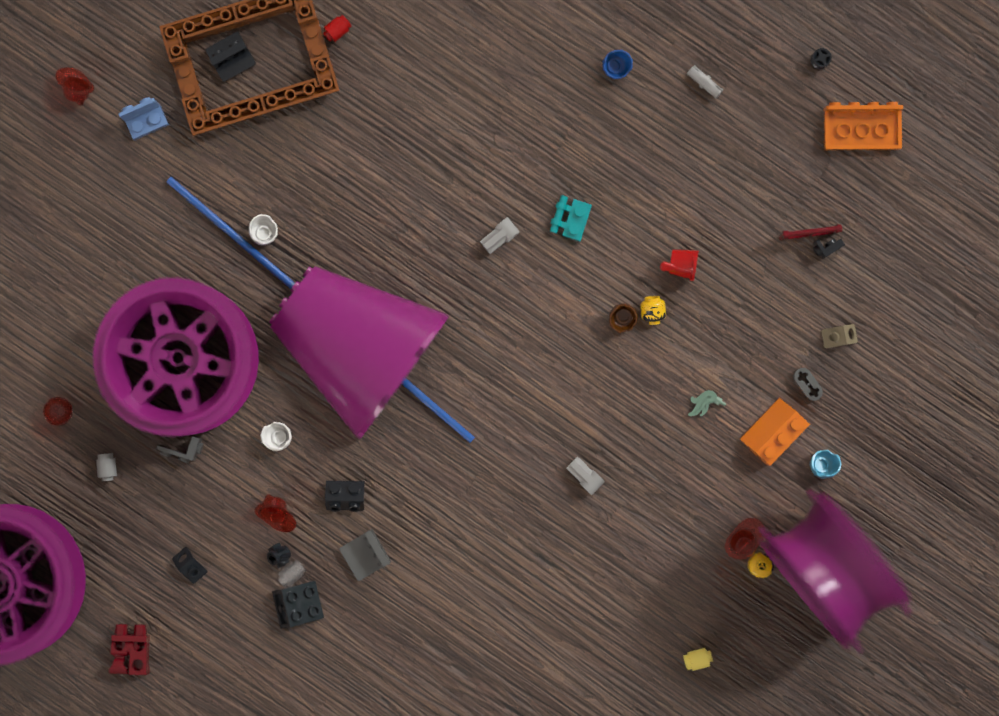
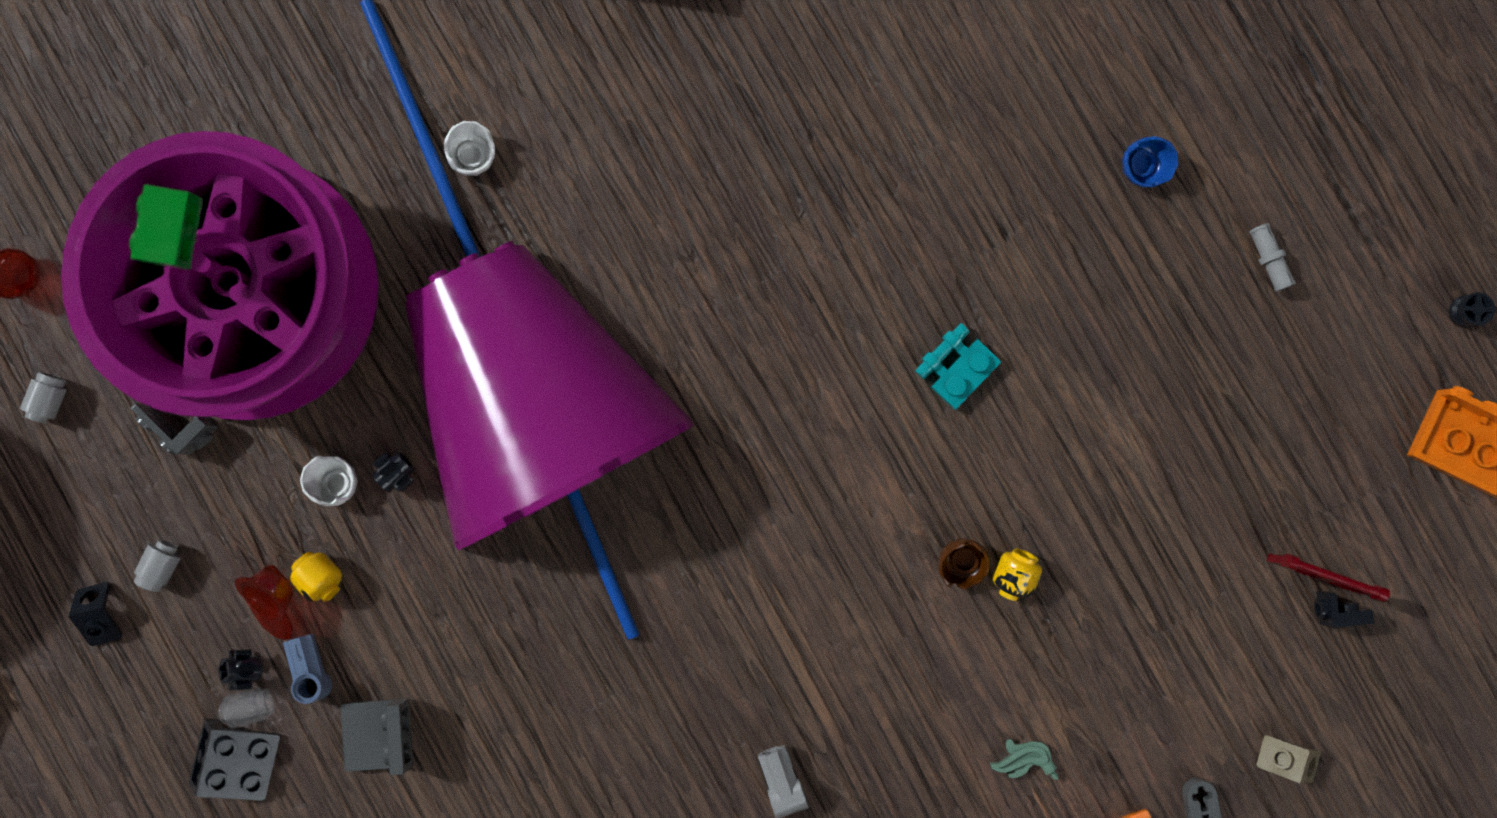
camera: 25 degrees right, 0 degrees up
(147, 341) = (166, 227): none -> green brick
(208, 524) = (156, 565): none -> light grey brick
(294, 489) = (316, 576): none -> yellow head
(307, 415) = (393, 472): none -> black gear
(311, 537) = (304, 664): none -> sand blue piece
(345, 495) = (391, 625): black bracket -> none
(503, 233) = (841, 337): light grey piece -> none
(682, 263) = (1100, 525): red hat -> none

